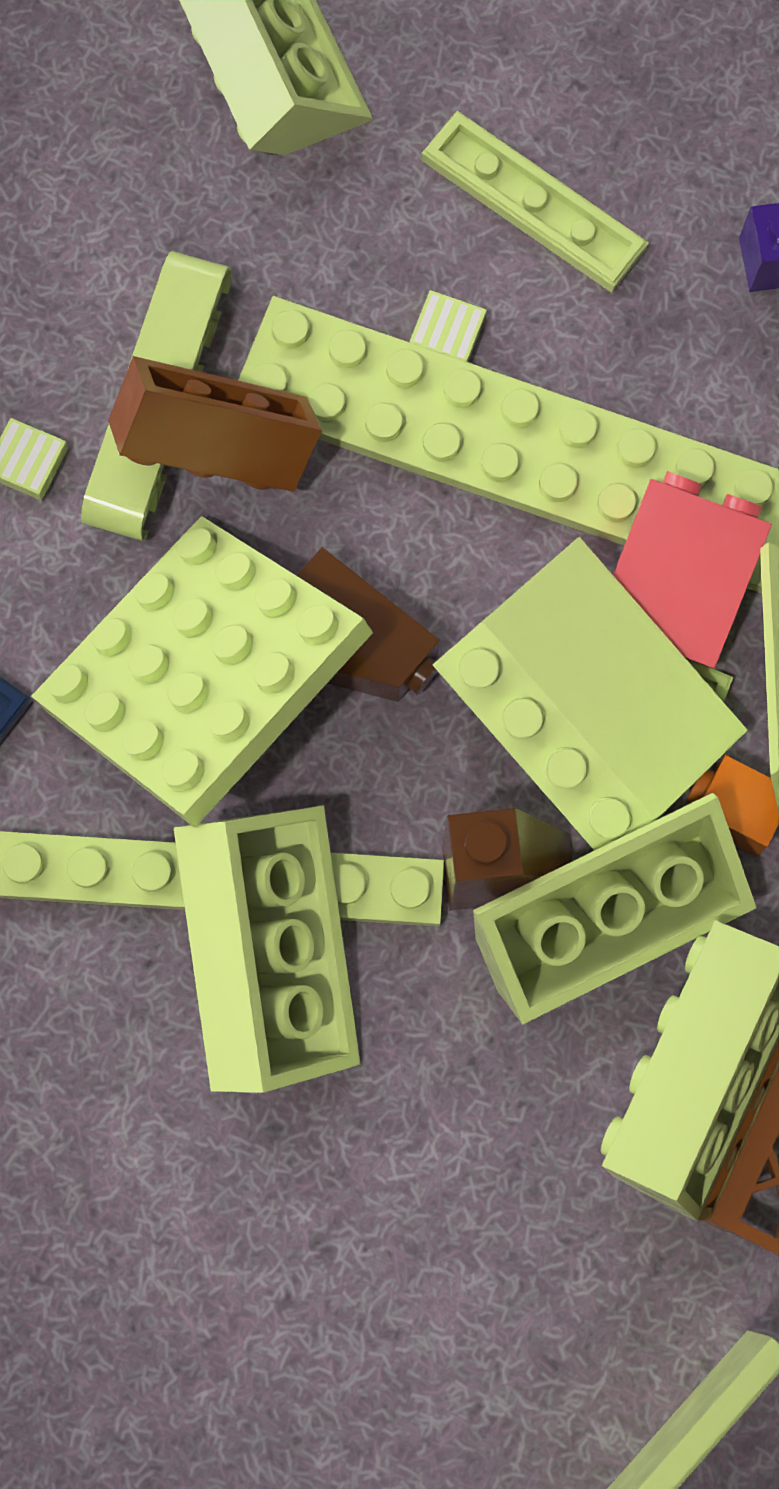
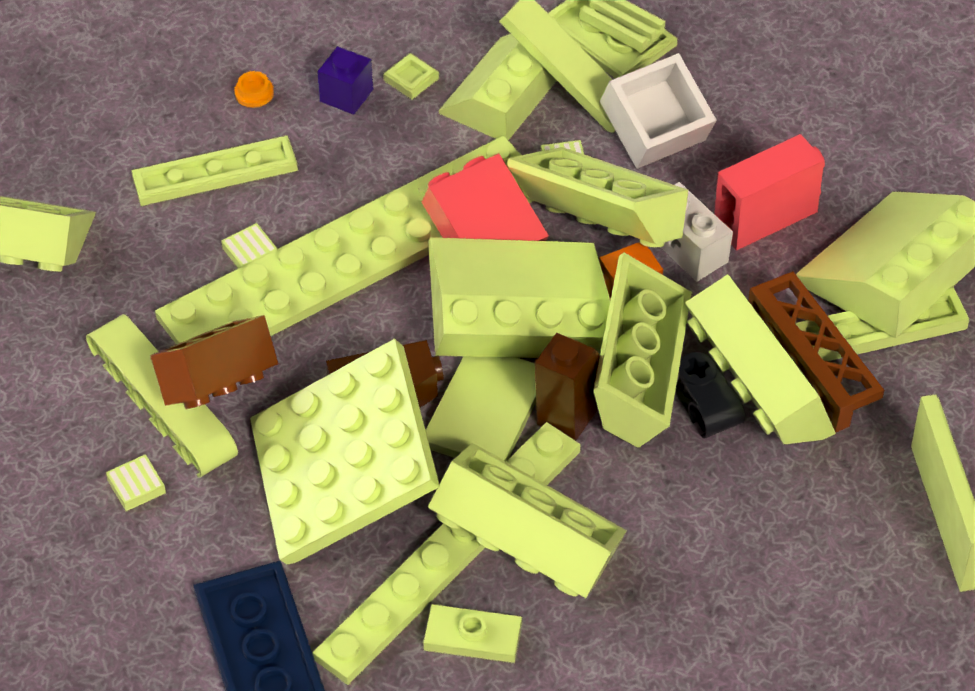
camera: 50 degrees left, 25 degrees down
(87, 986) = (473, 633): none -> yellowish green plate
(411, 769) = (484, 406): none -> yellowish green tile
(615, 1038) = (707, 395): none -> black piece
(688, 152) = (253, 89): none -> light orange plate

